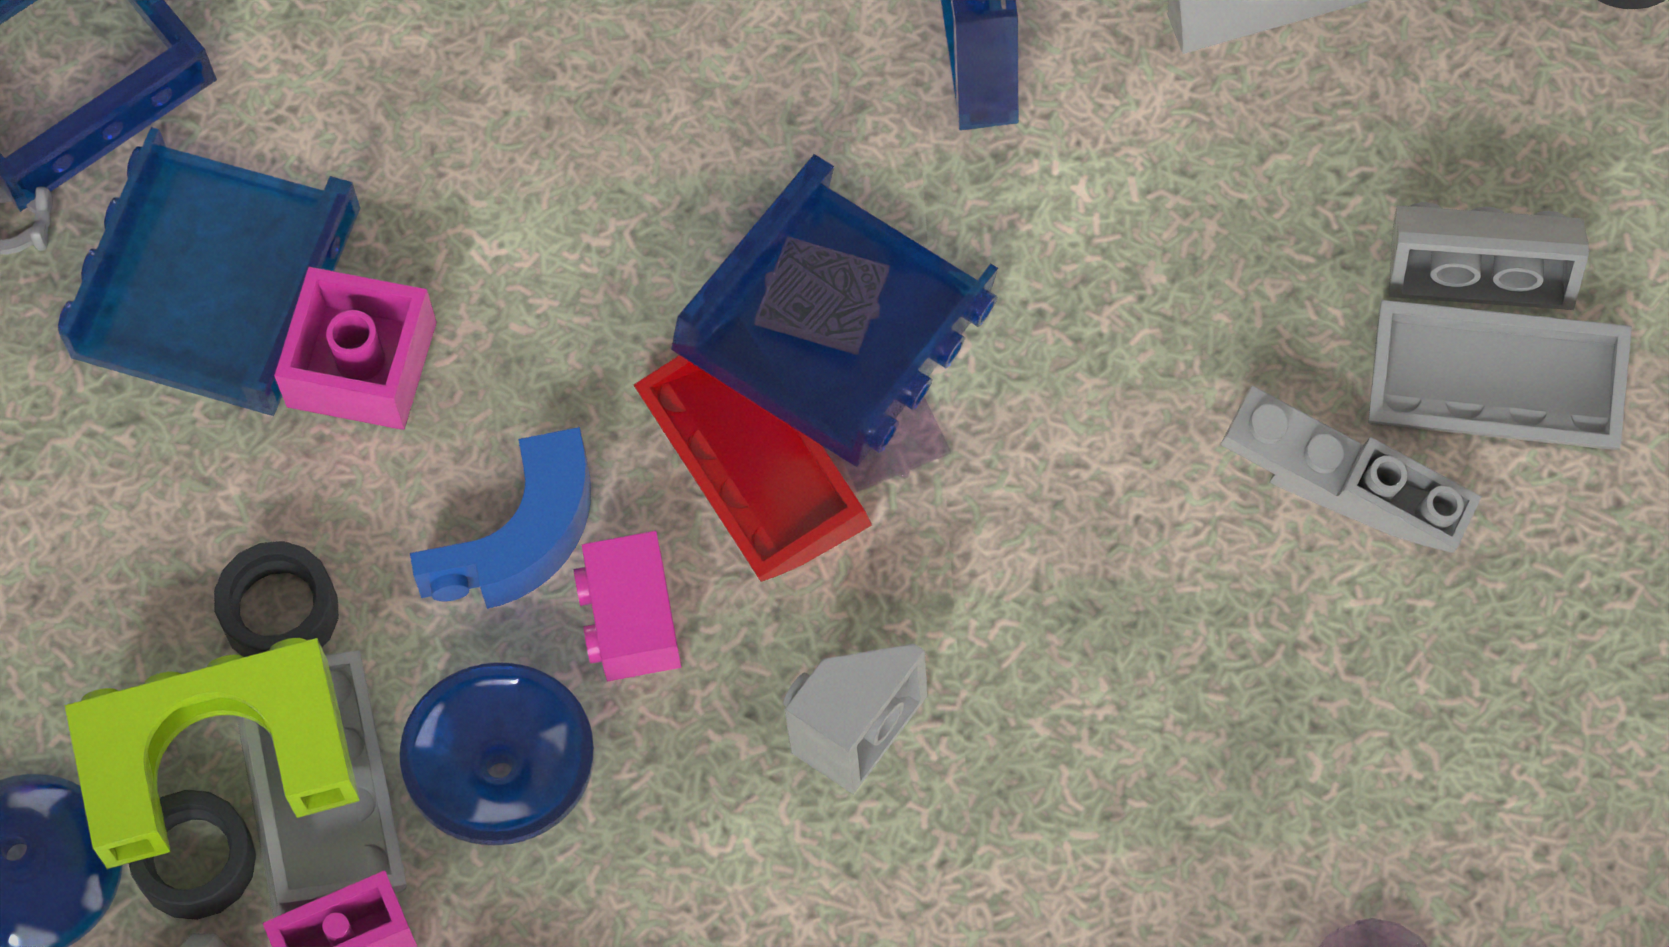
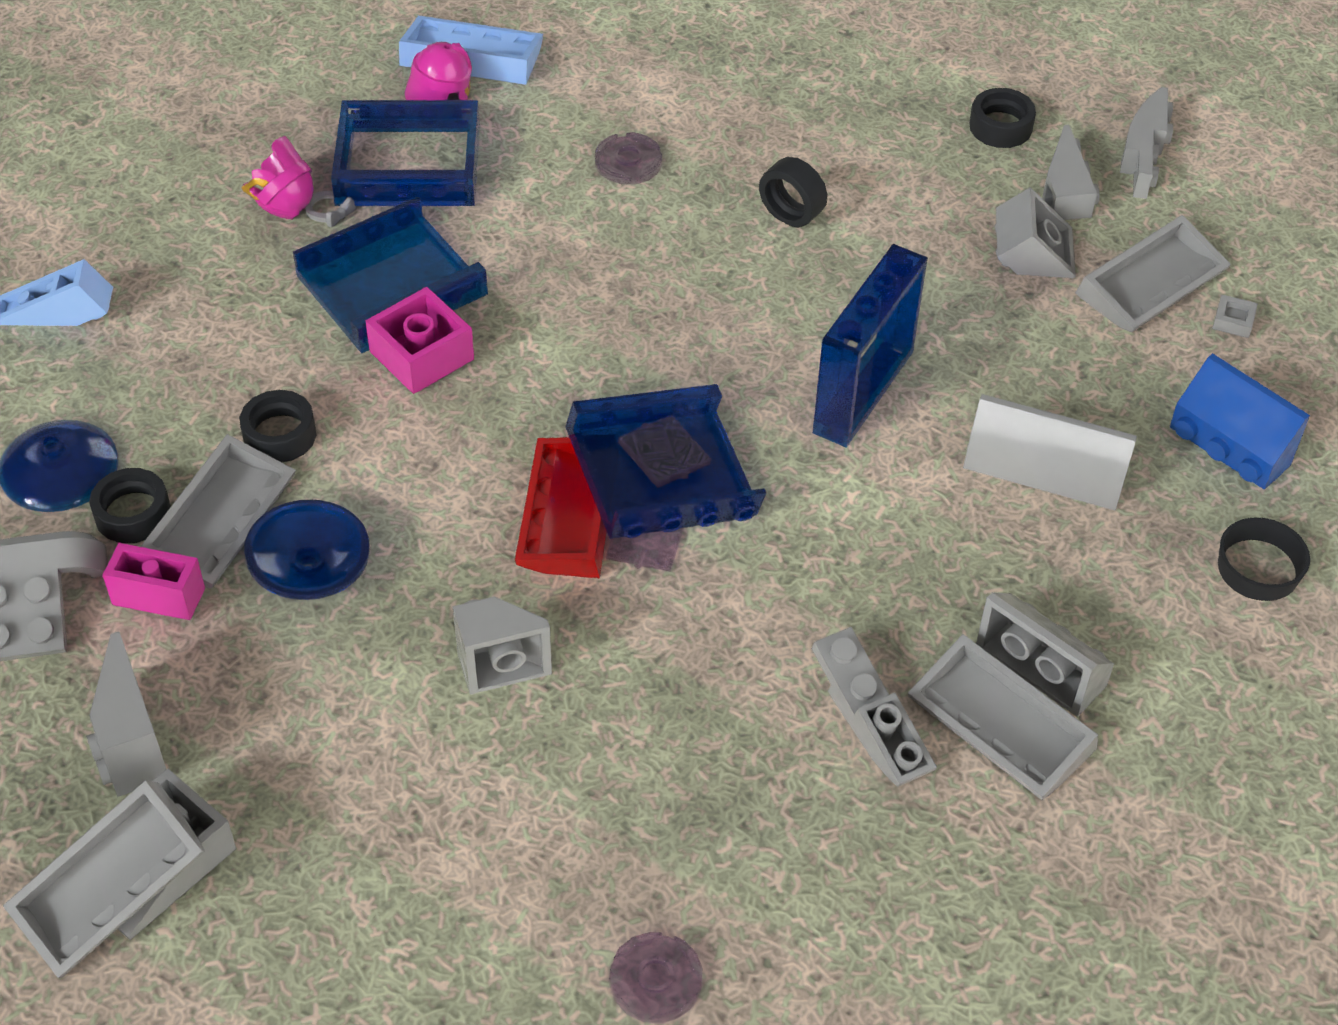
camera: 30 degrees right, 15 degrees down
(125, 733) = (144, 424): lime arch -> none
(531, 542) = (425, 473): blue arch -> none
(629, 606) = (439, 531): dark pink brick -> none

